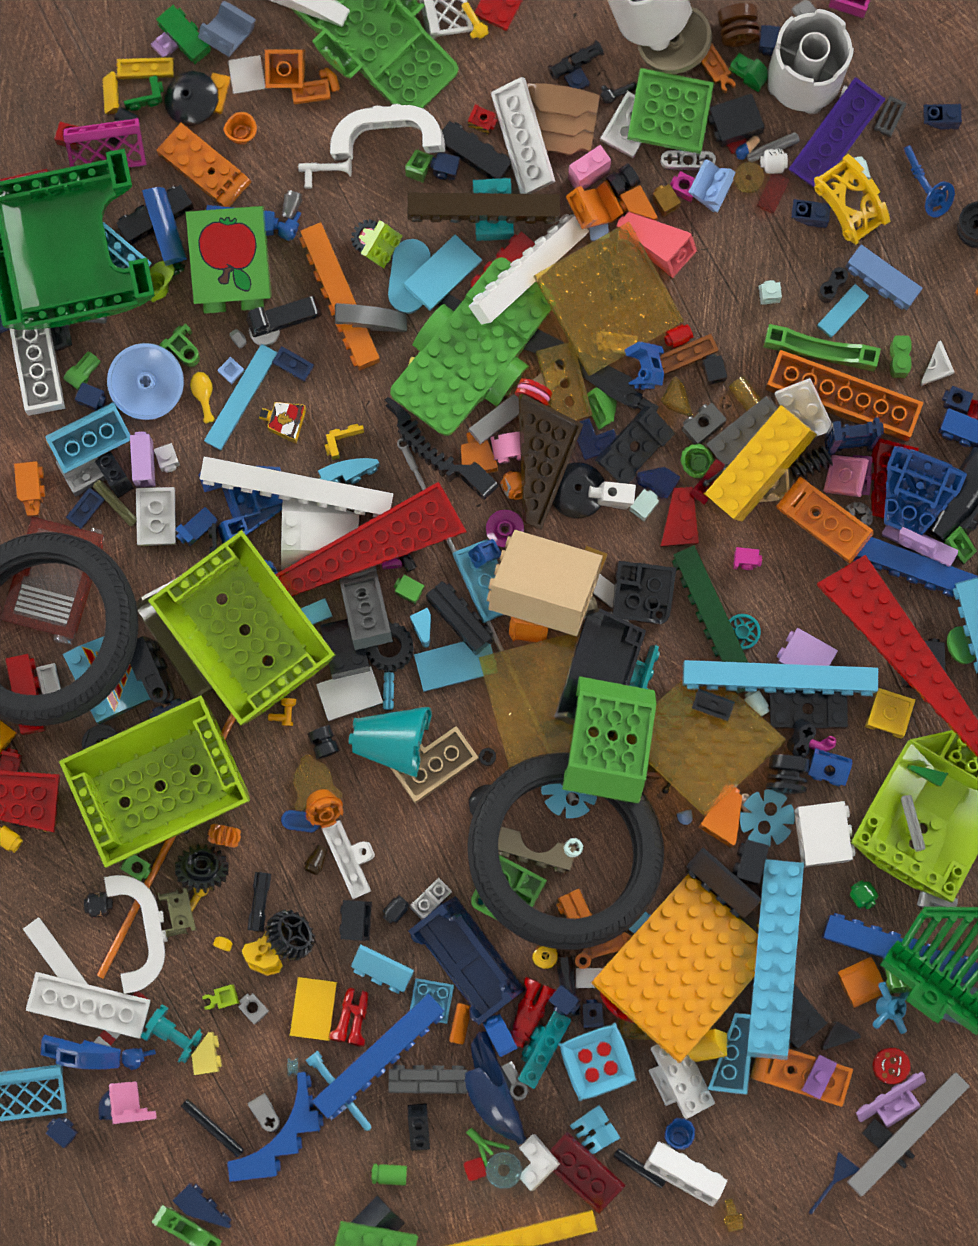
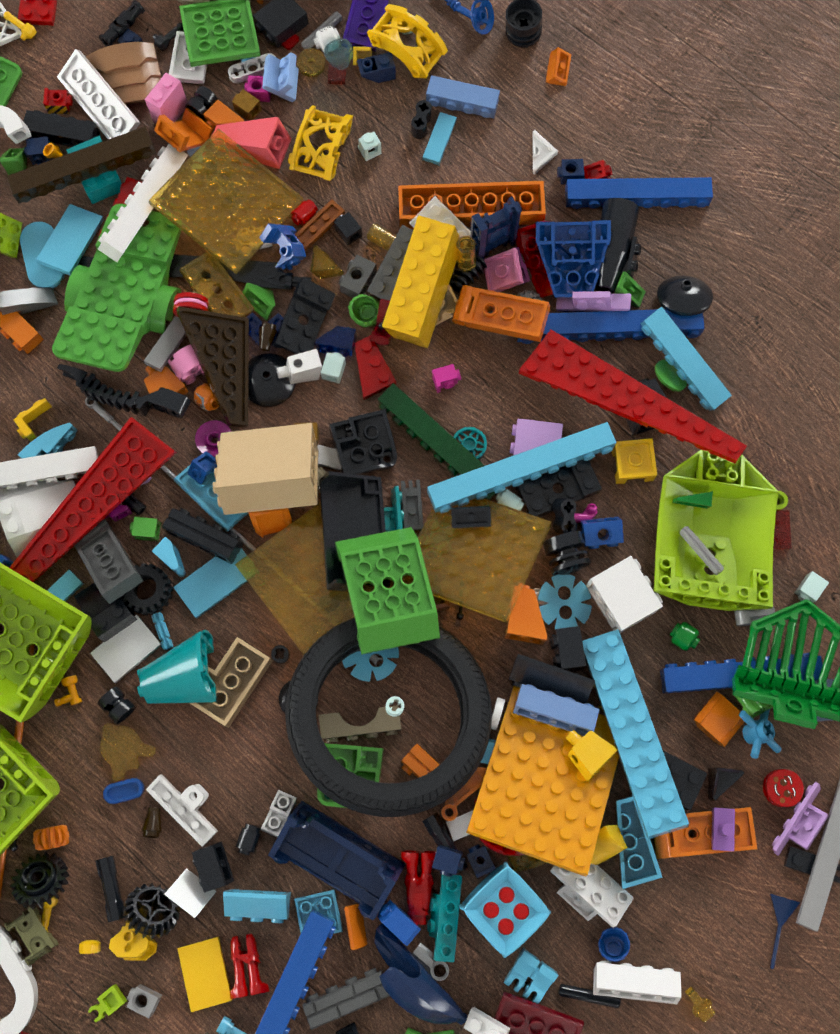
camera: 20 degrees left, 5 degrees down
(323, 808) = (138, 769): orange cone -> none
(326, 934) = (189, 894): none -> white sticker
(458, 175) = (52, 151): none -> light orange piece
(547, 963) = (415, 830): yellow head -> none
(593, 449) = (266, 335): none -> dark brown cone
(662, 891) = (497, 711): none -> white piece
(664, 669) = (412, 505): none -> dark grey hinge
(685, 817) = (488, 633): medium blue hinge -> none
(716, 911) = (555, 710): none -> medium blue brick
(729, 961) = (589, 752): none -> yellow torso
(746, 148) = (299, 38): arm -> none
(750, 259) = (328, 162): none -> yellow fence
(778, 184) = (339, 53): none -> clear light blue hat
(802, 191) = (361, 52): none -> yellow panel
(815, 456) = (466, 253): none -> clear yellow pin
(846, 354) = (468, 168): bright green arch -> none
(901, 360) = (506, 154): bright green brick -> none

